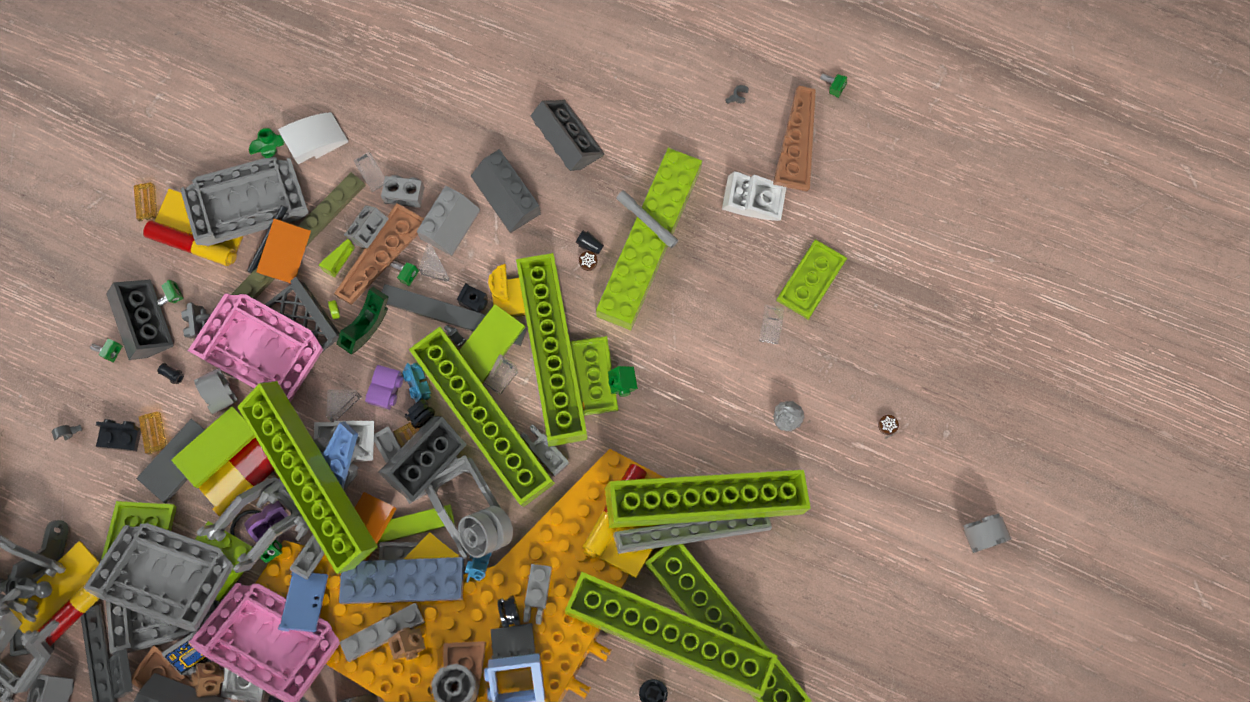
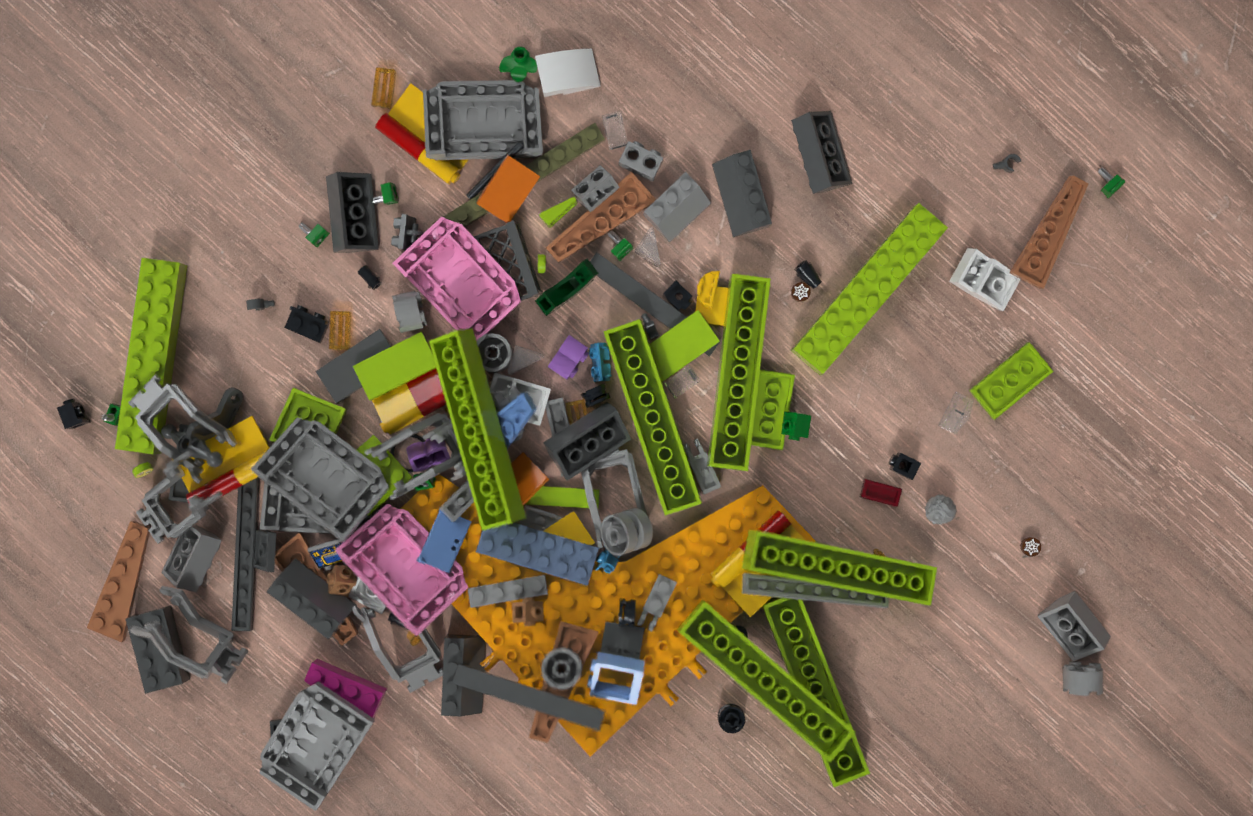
camera: 15 degrees right, 15 degrees up
(311, 394) = (504, 352): none -> light grey brick
(662, 233) = (863, 254): light grey piece -> none
(727, 420) = (881, 492): none -> dark red tile
(743, 381) = (910, 469): none -> black brick
(959, 487) = (1074, 626): none -> light grey slope

